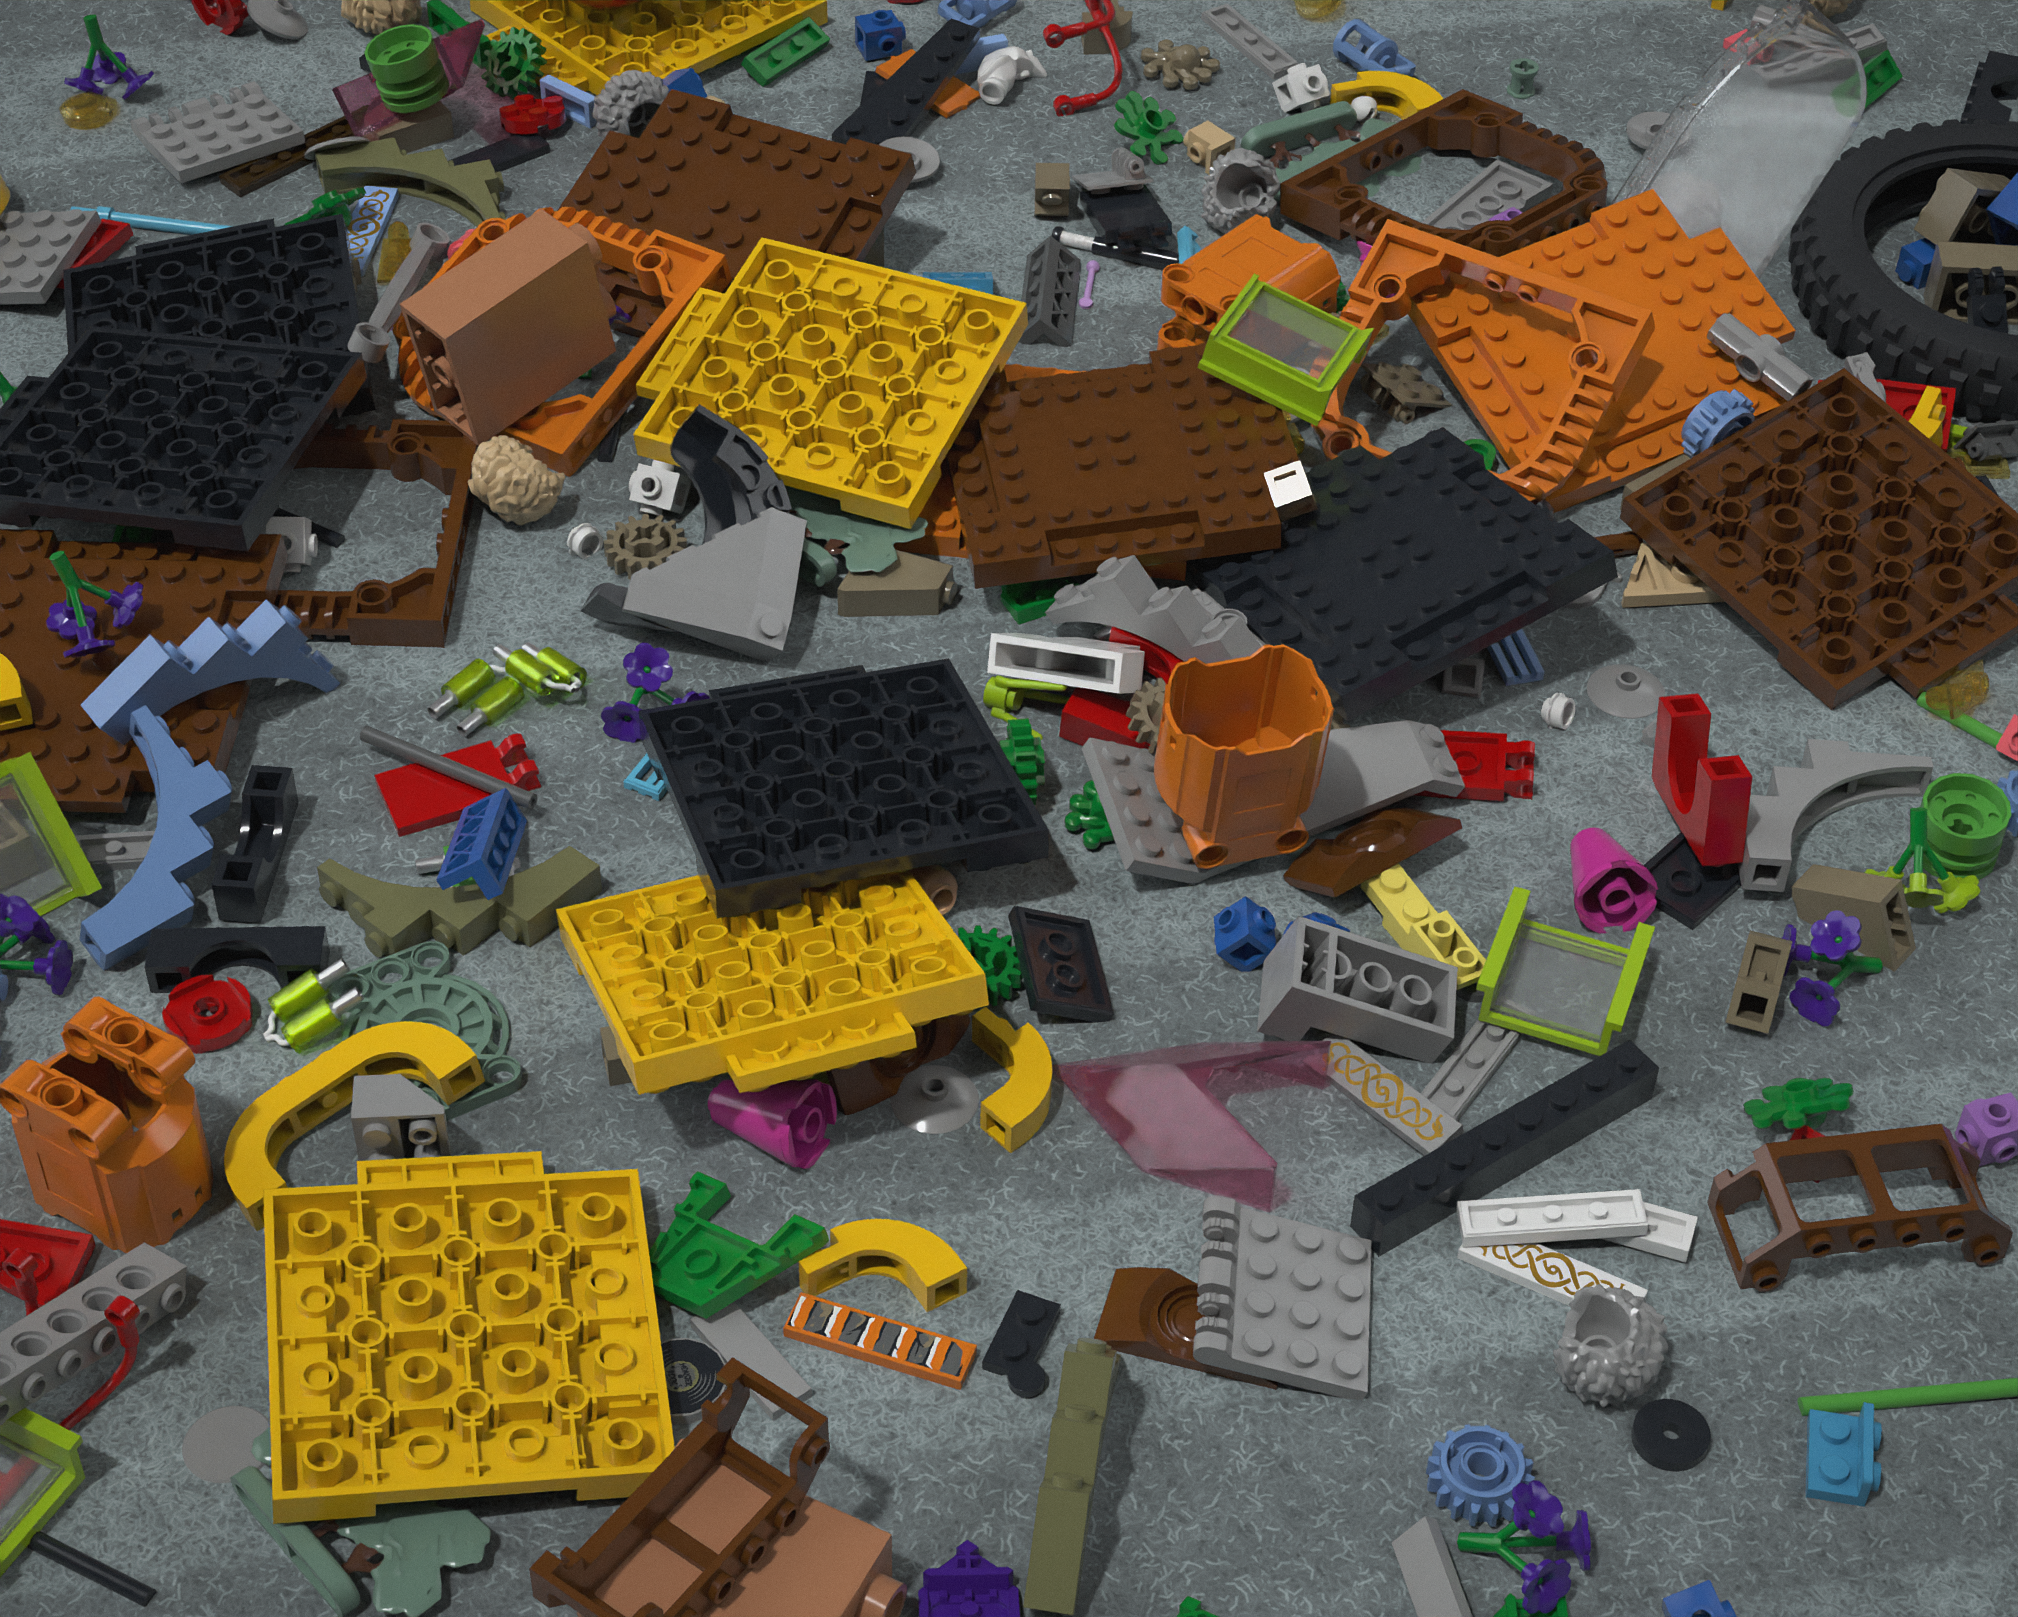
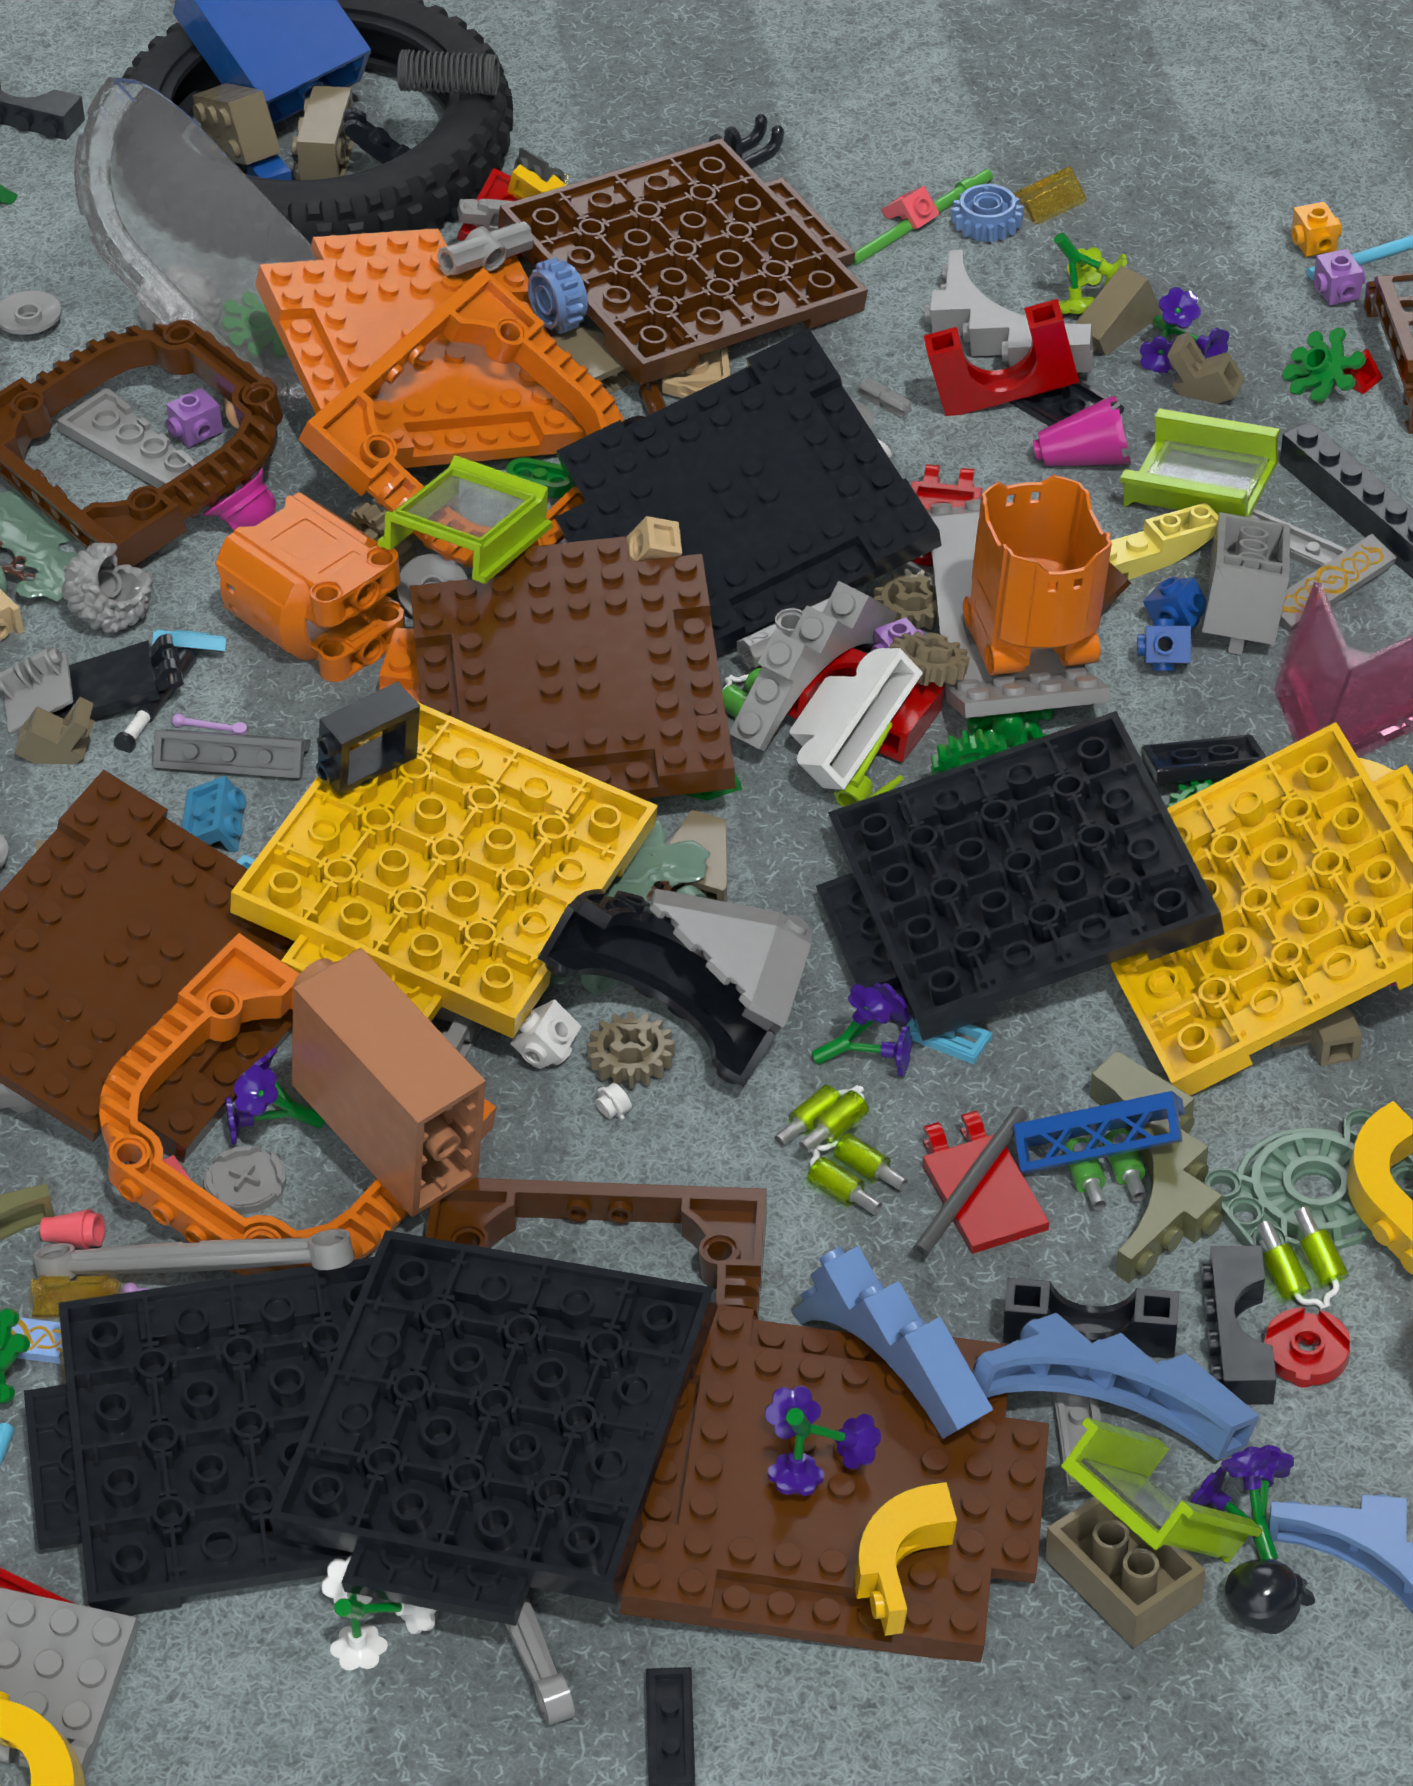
camera: 85 degrees left, 0 degrees up
(513, 480) = (541, 1140): tan hair -> none
(922, 274) = (387, 711): none -> black window
(1961, 691) = (859, 232): clear yellow hinge -> none
(1965, 823) = (1026, 246): bright green wheel -> none

